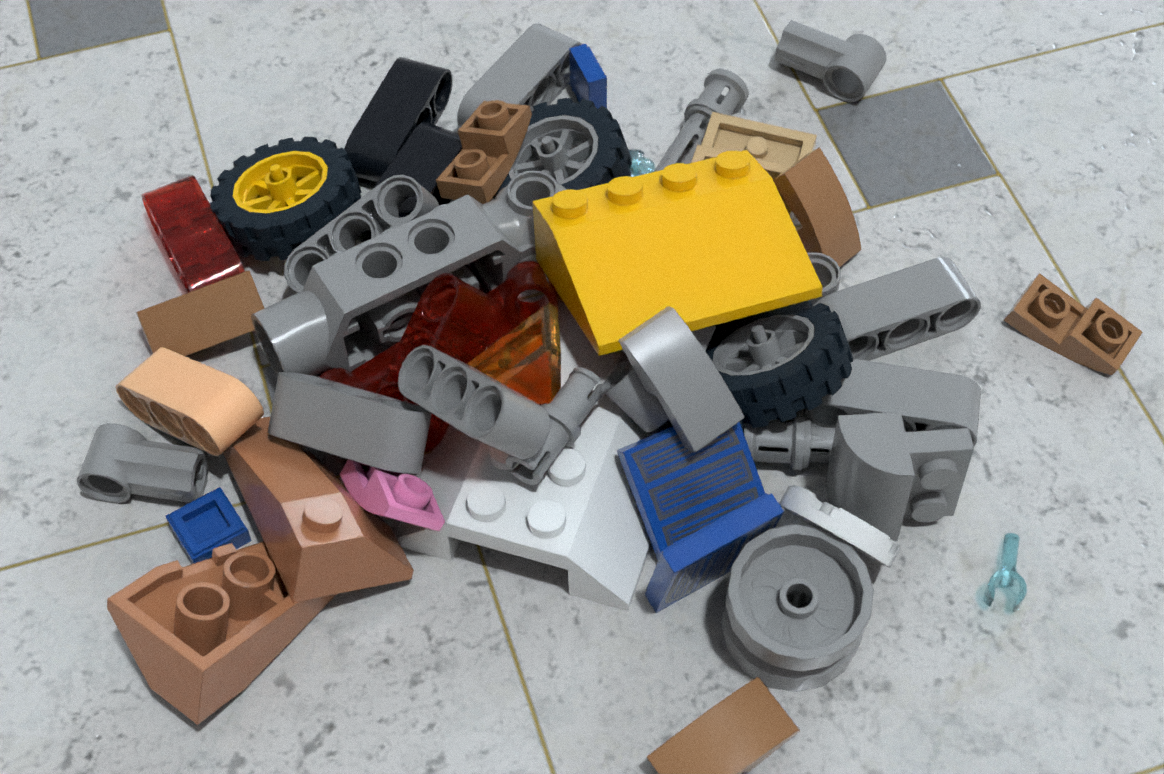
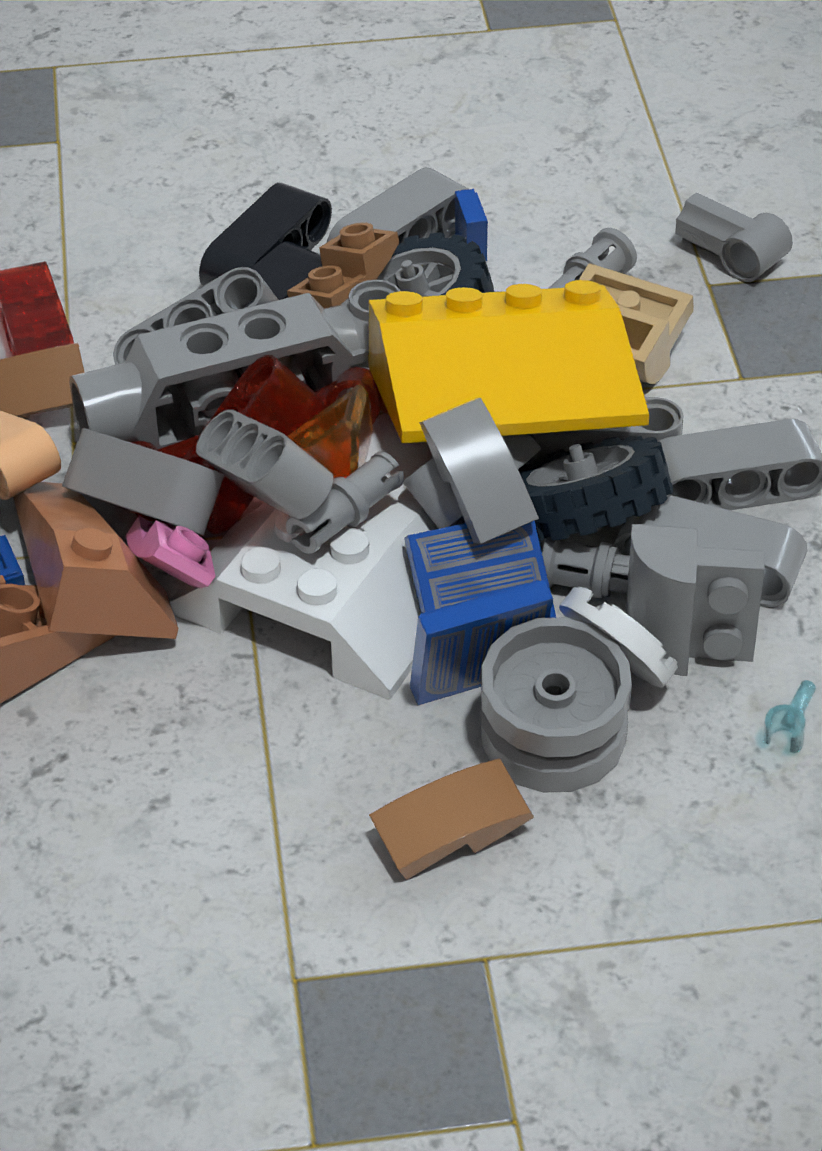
camera: 10 degrees right, 10 degrees down
(283, 195) = (127, 287): black wheel -> none
(820, 207) = (678, 359): medium nougat slope -> none

